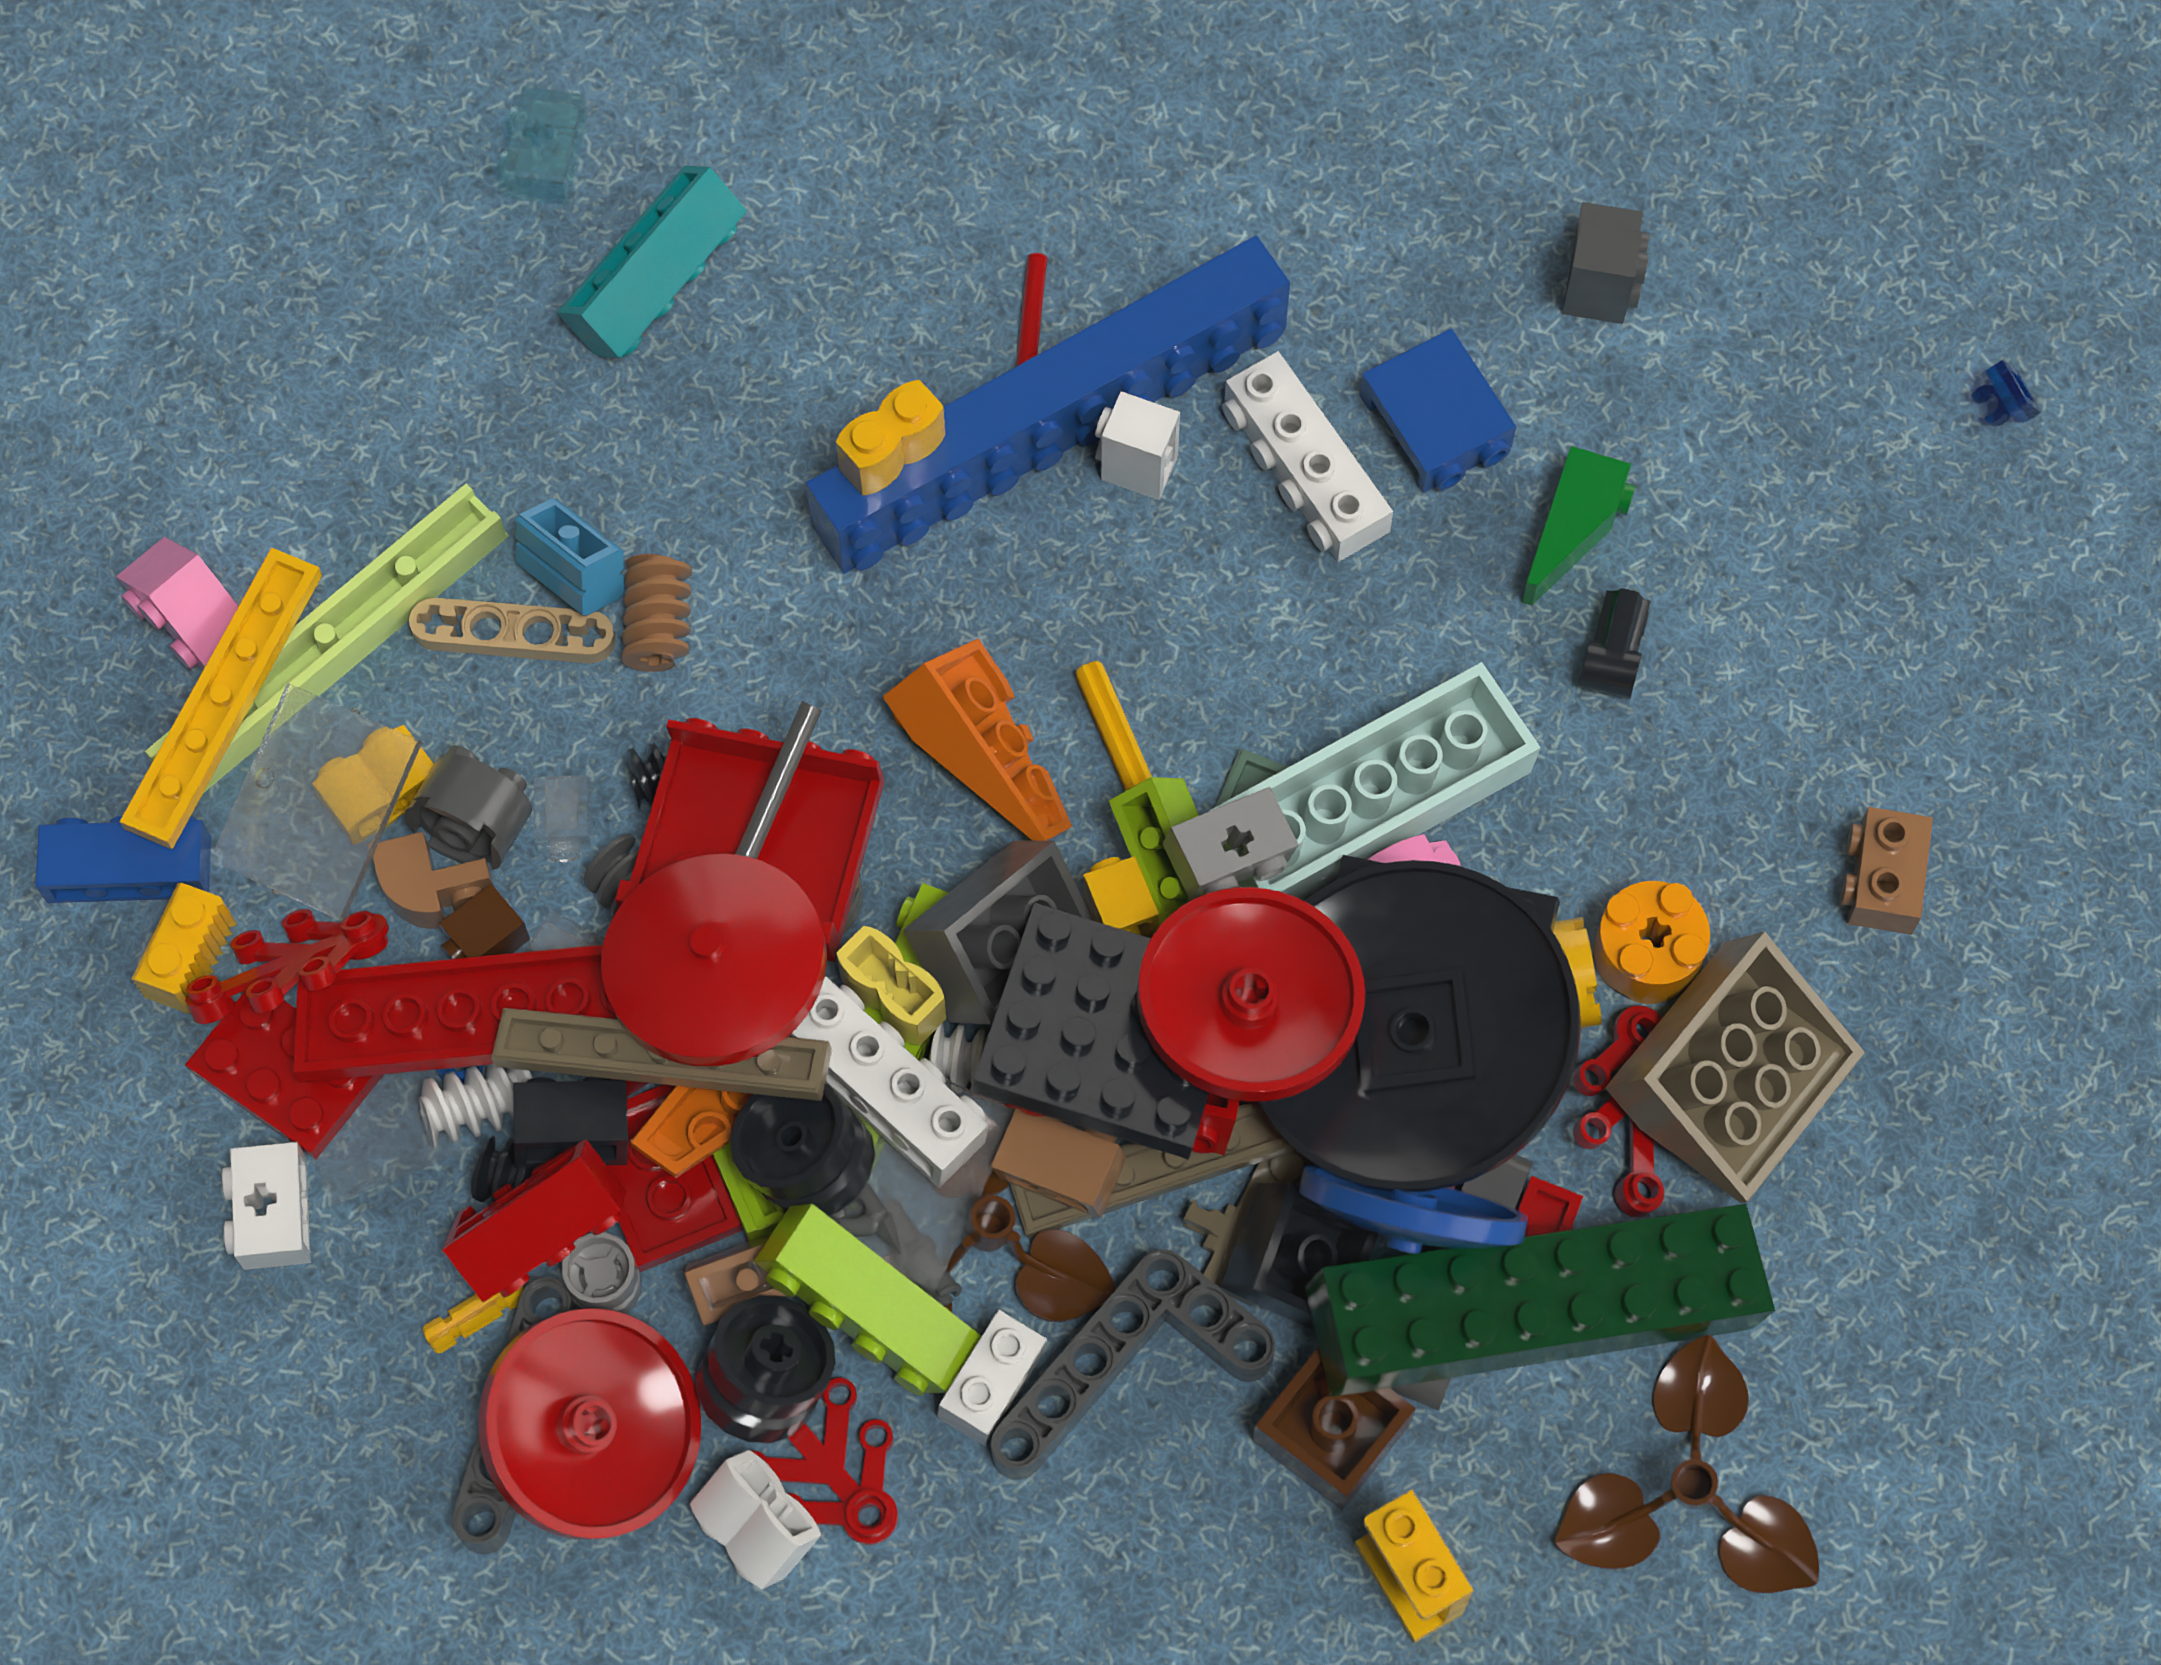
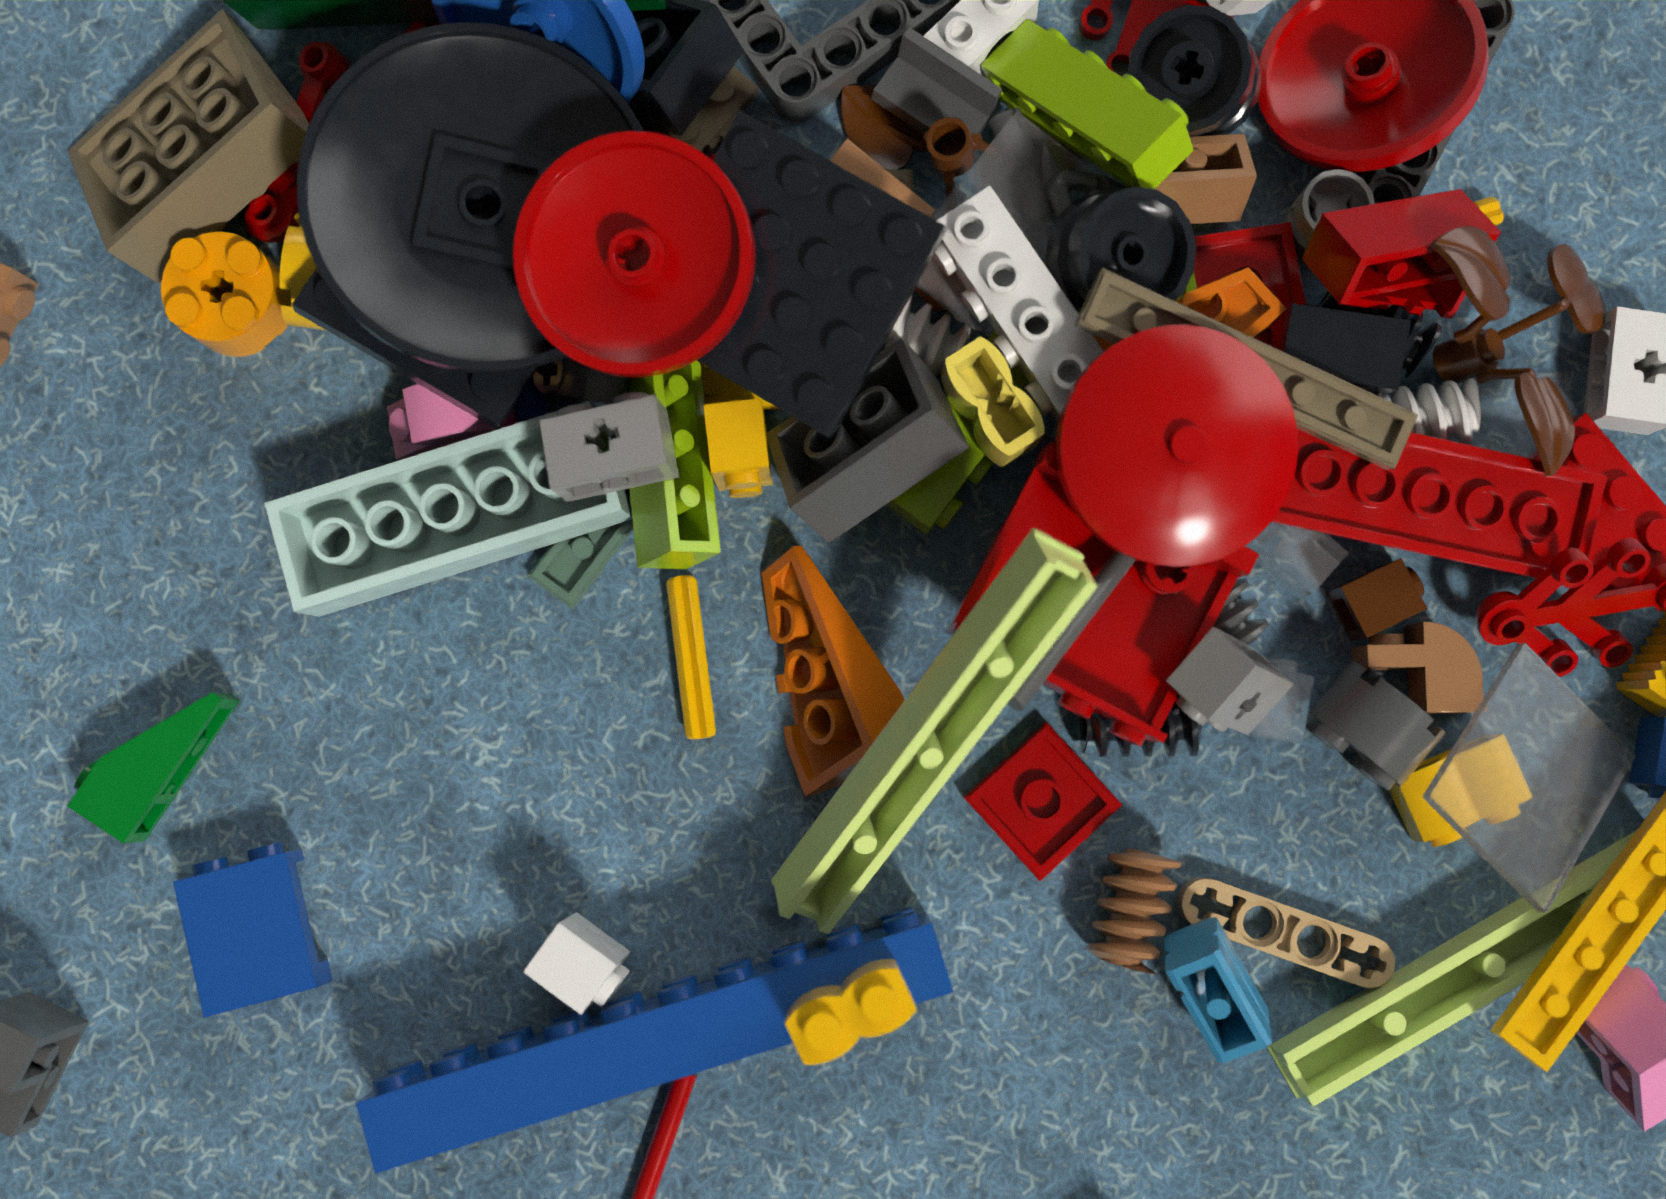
camera: 165 degrees left, 15 degrees up
(453, 1181) = (1477, 351): none -> reddish brown plant
(616, 793) = (1227, 683): none -> light grey brick
(758, 684) = (1042, 801): none -> red tile
(875, 677) = (934, 728): none -> yellowish green tile
(1021, 1291) = (934, 85): none -> dark grey panel
(1307, 457) = (407, 913): white brick -> none
(1614, 655) = (164, 607): black piece -> none

